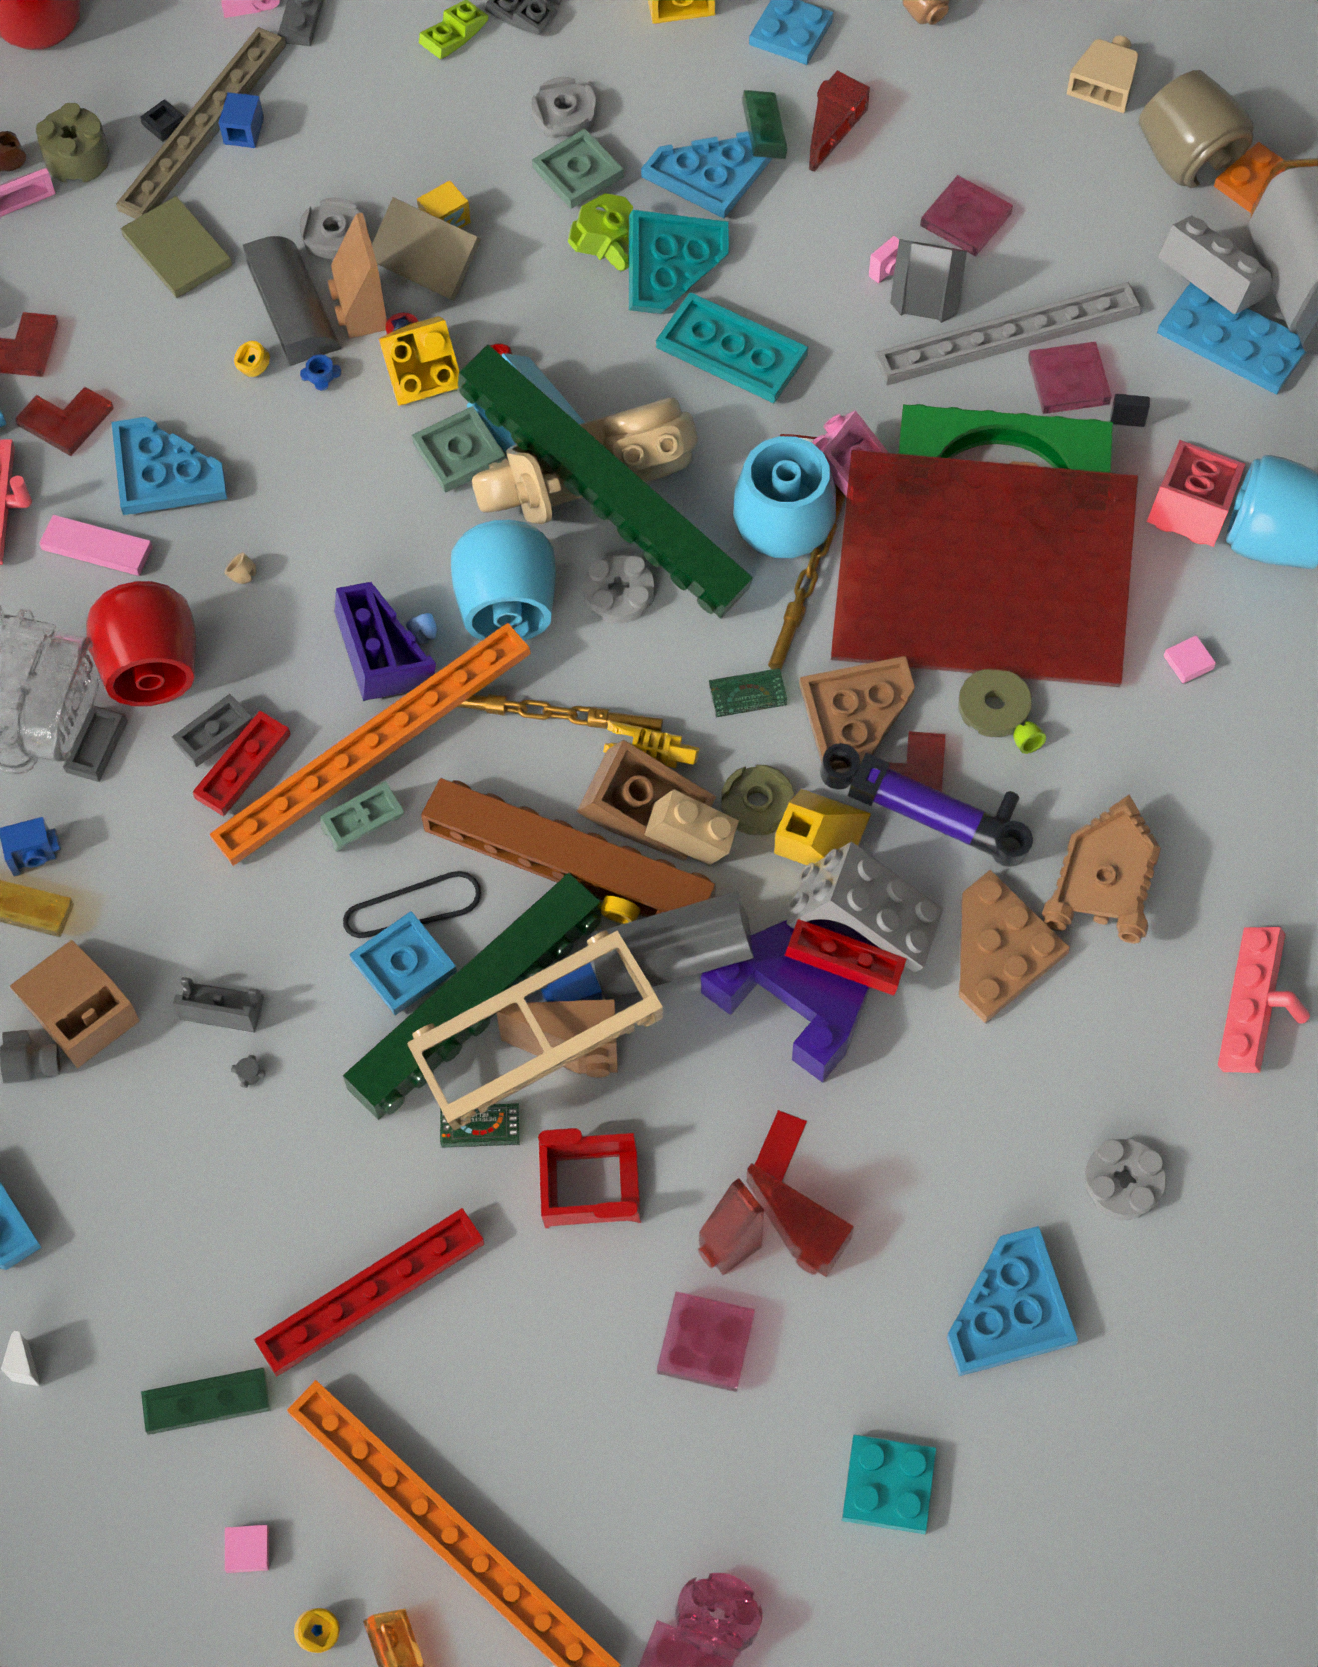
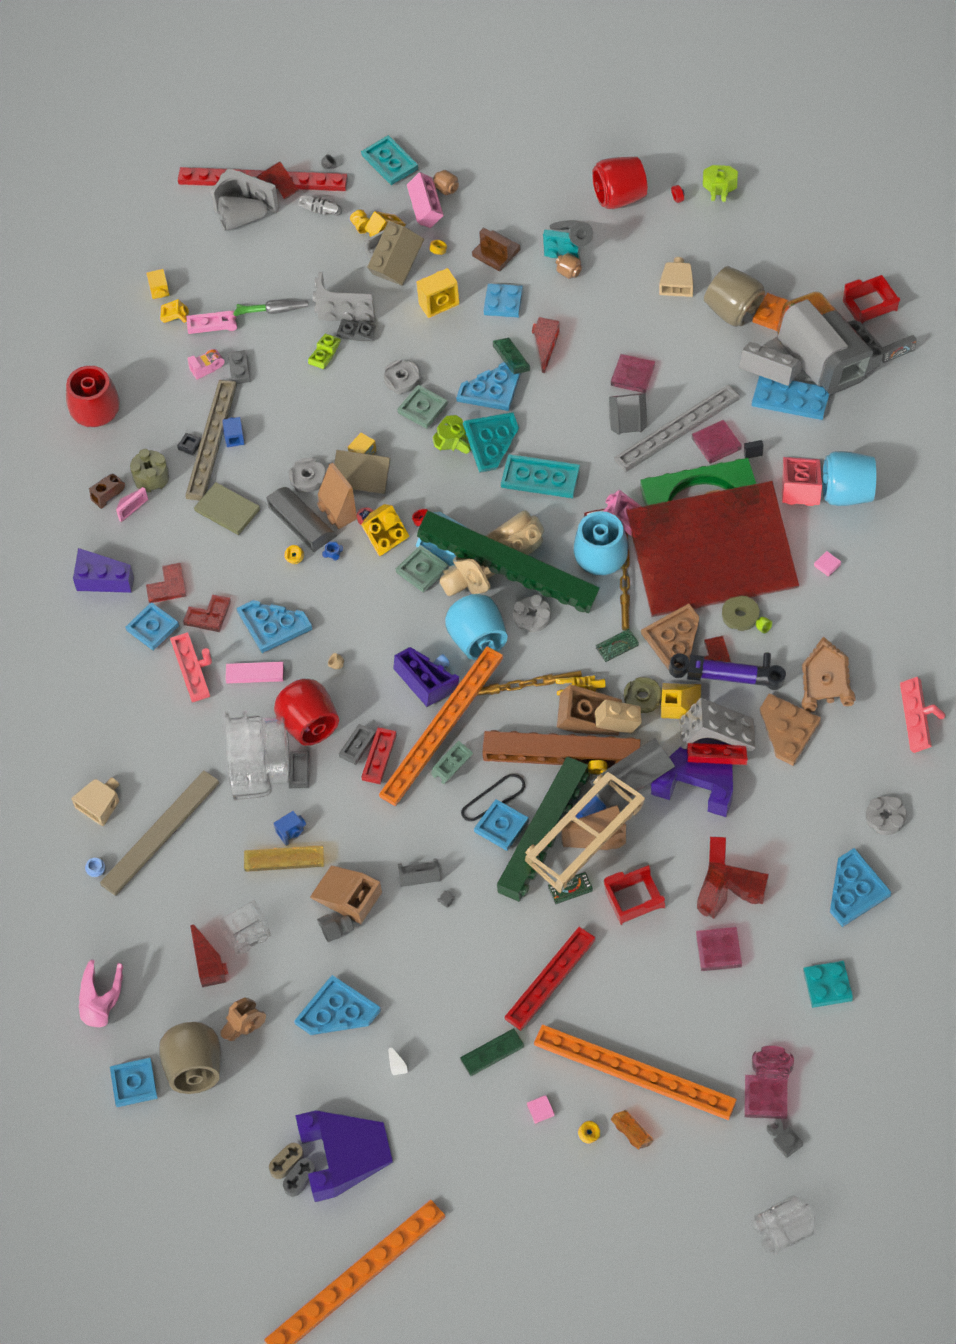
camera: 15 degrees left, 5 degrees down
(884, 260) = (601, 408): bright pink plate -> none

